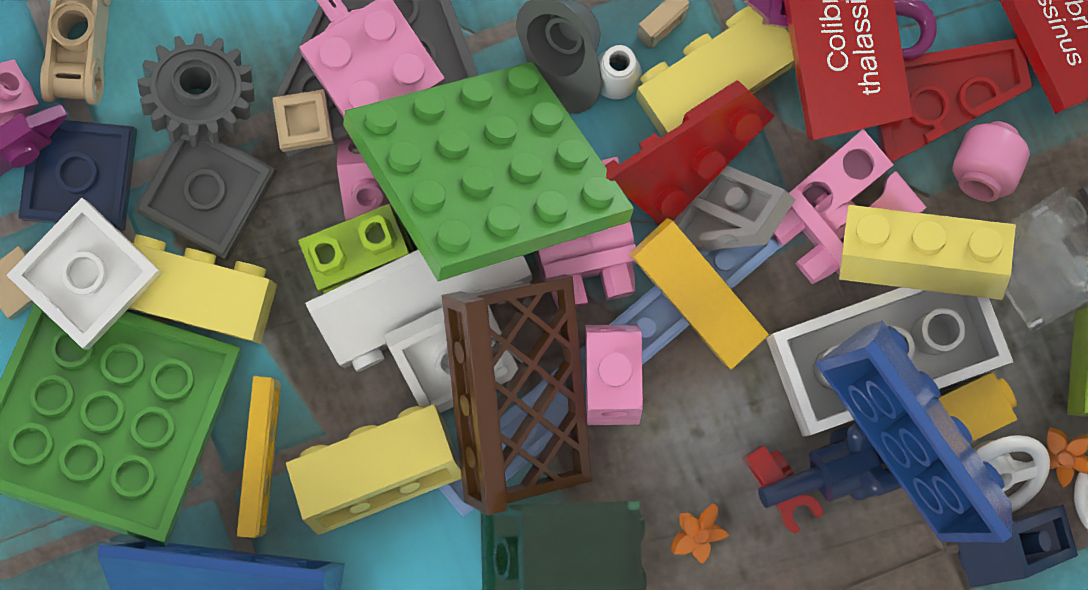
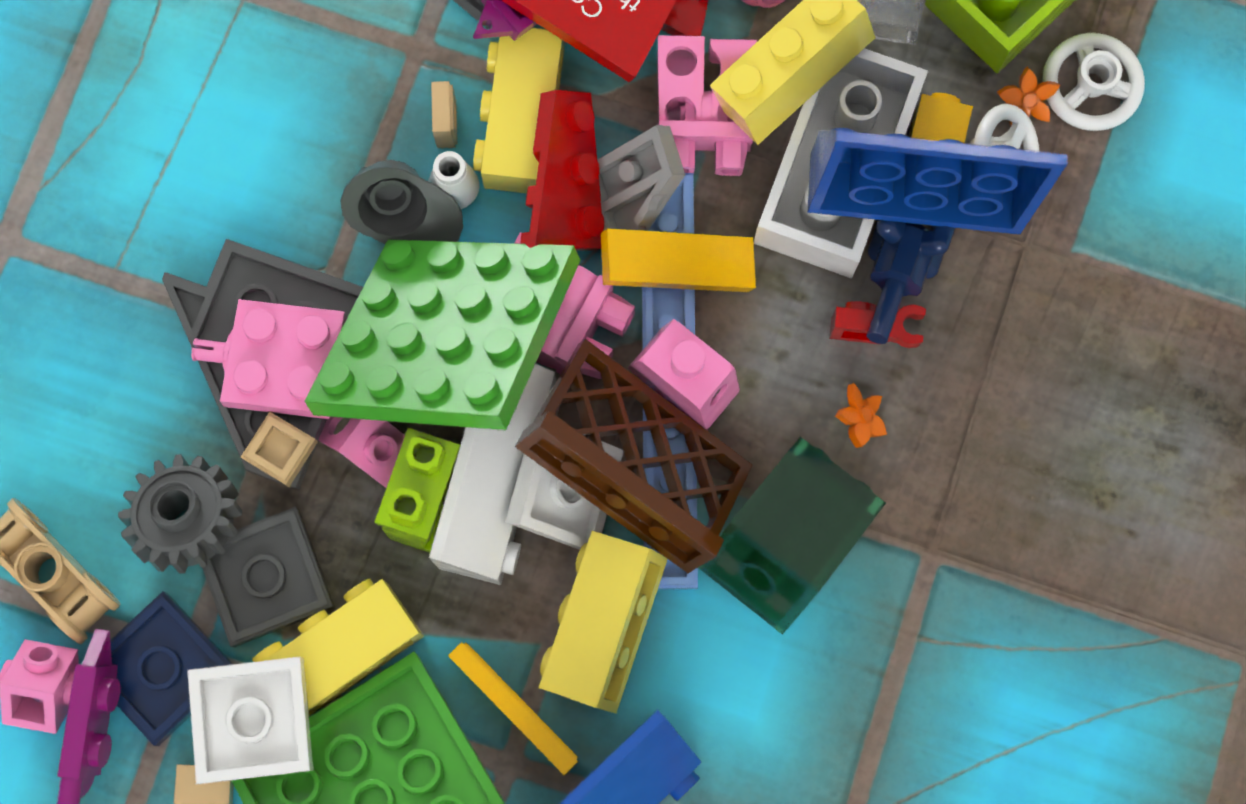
camera: 55 degrees left, 5 degrees down
(1037, 544) = (1073, 193): dark blue slope -> none

